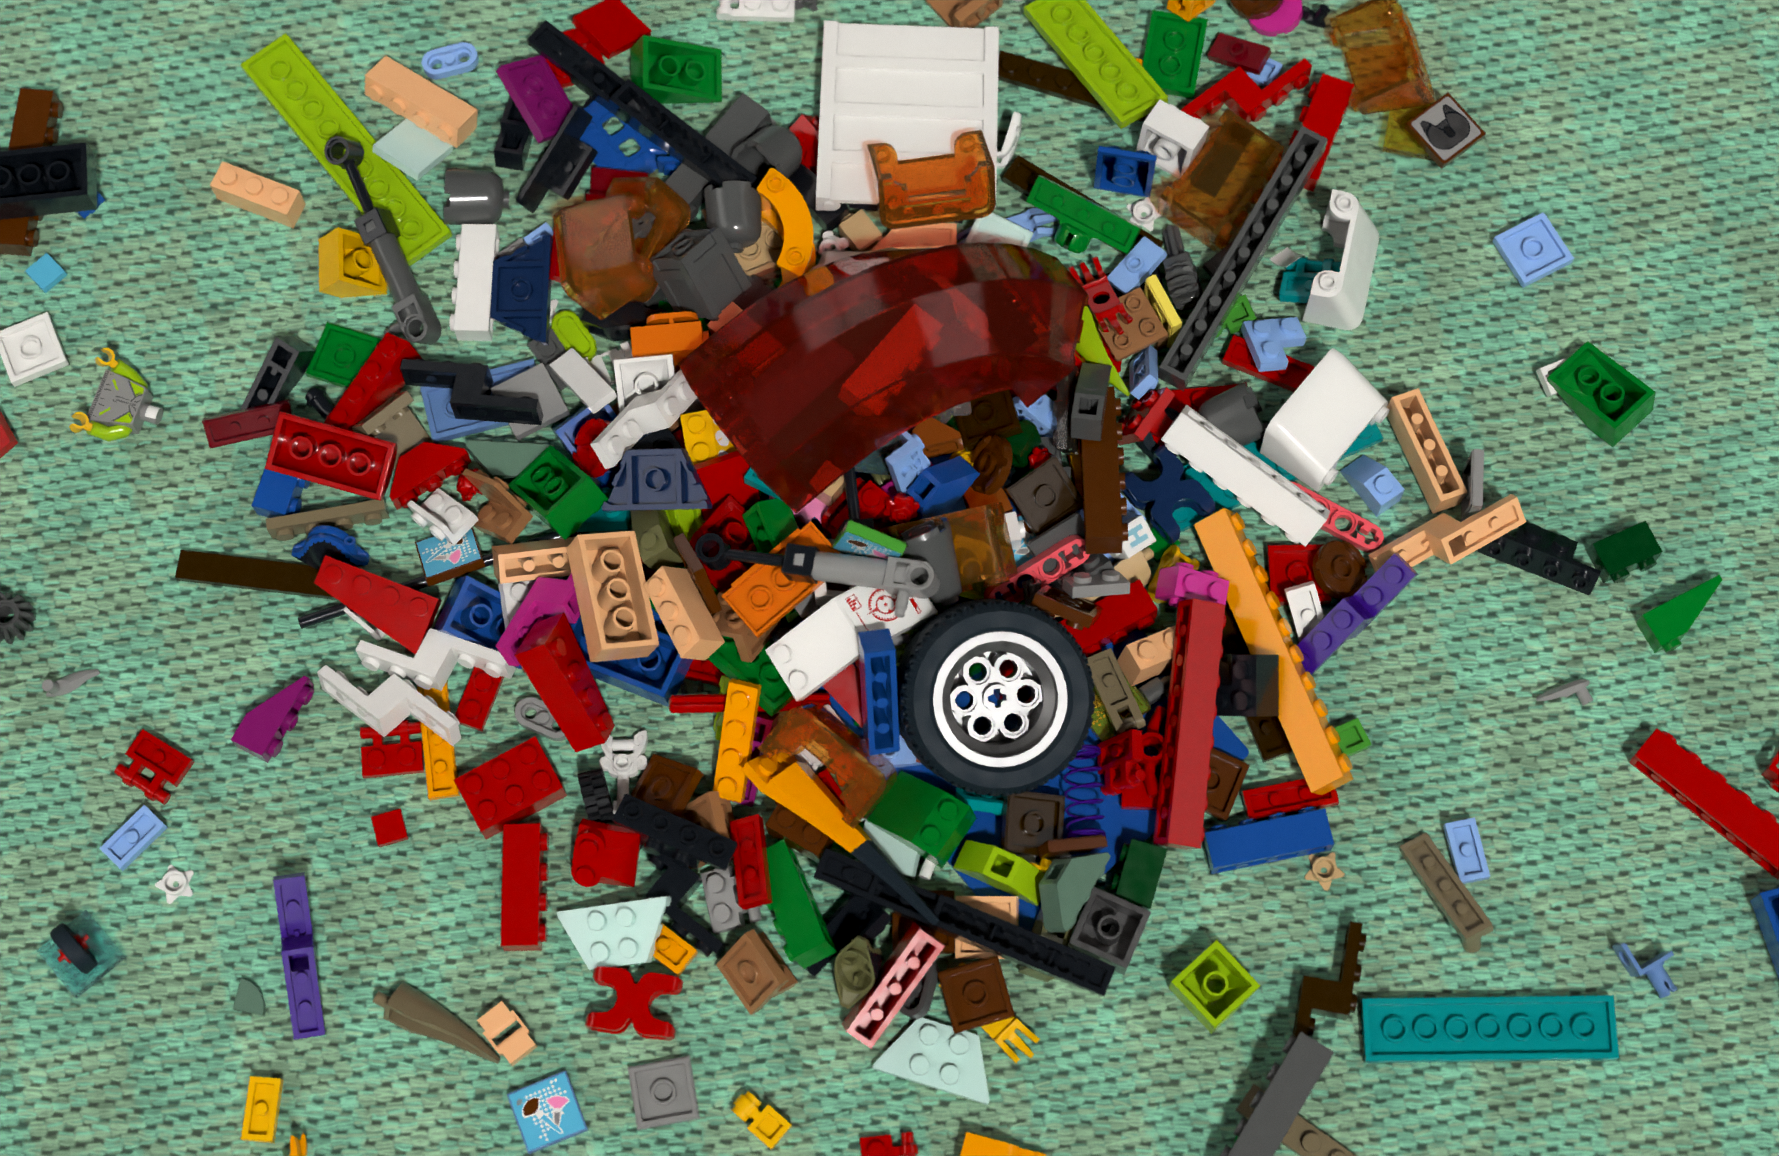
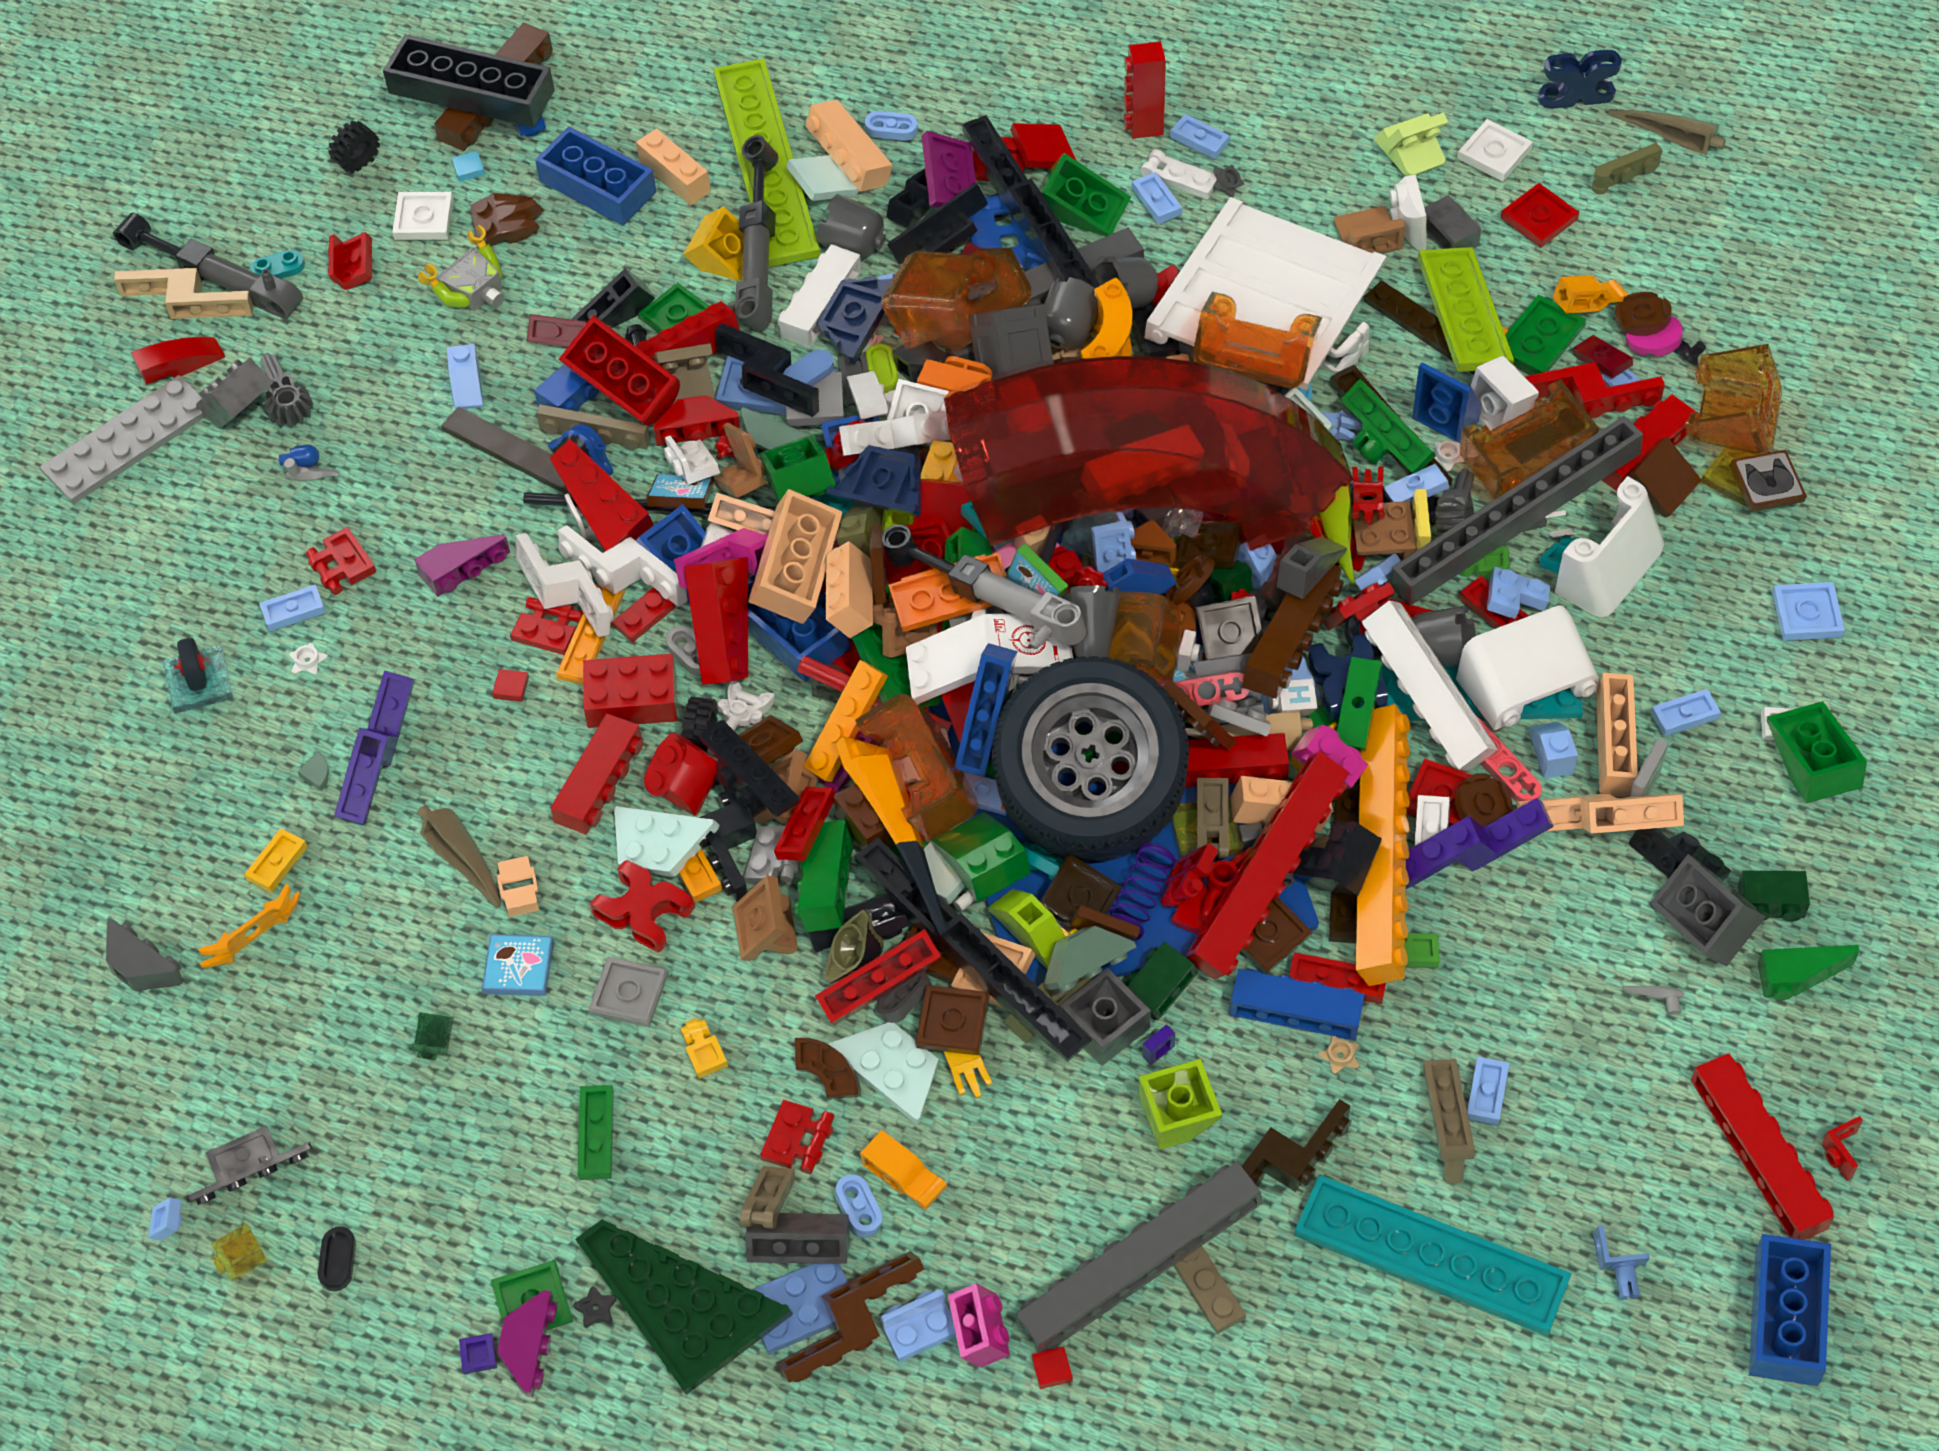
camera: 25 degrees right, 15 degrees down
(52, 668) = (303, 455): none -> blue cylinder
(116, 319) = (505, 217): none -> reddish brown plate
(171, 515) = (465, 376): none -> light blue slope
(186, 236) = (596, 175): none -> blue brick
(513, 373) = (811, 367): none -> medium blue tile
(747, 42) = (1157, 198): none -> light blue plate
(883, 1086) = (829, 1066): none -> reddish brown tile
(1166, 934) = (1158, 1044): none -> dark purple tile
(1190, 504) = (1360, 687): none -> green tile
(1352, 162) = (1665, 476): none -> reddish brown tile
(1471, 399) = (1685, 712): none -> light blue plate
(1578, 596) = (1707, 911): none -> dark grey slope

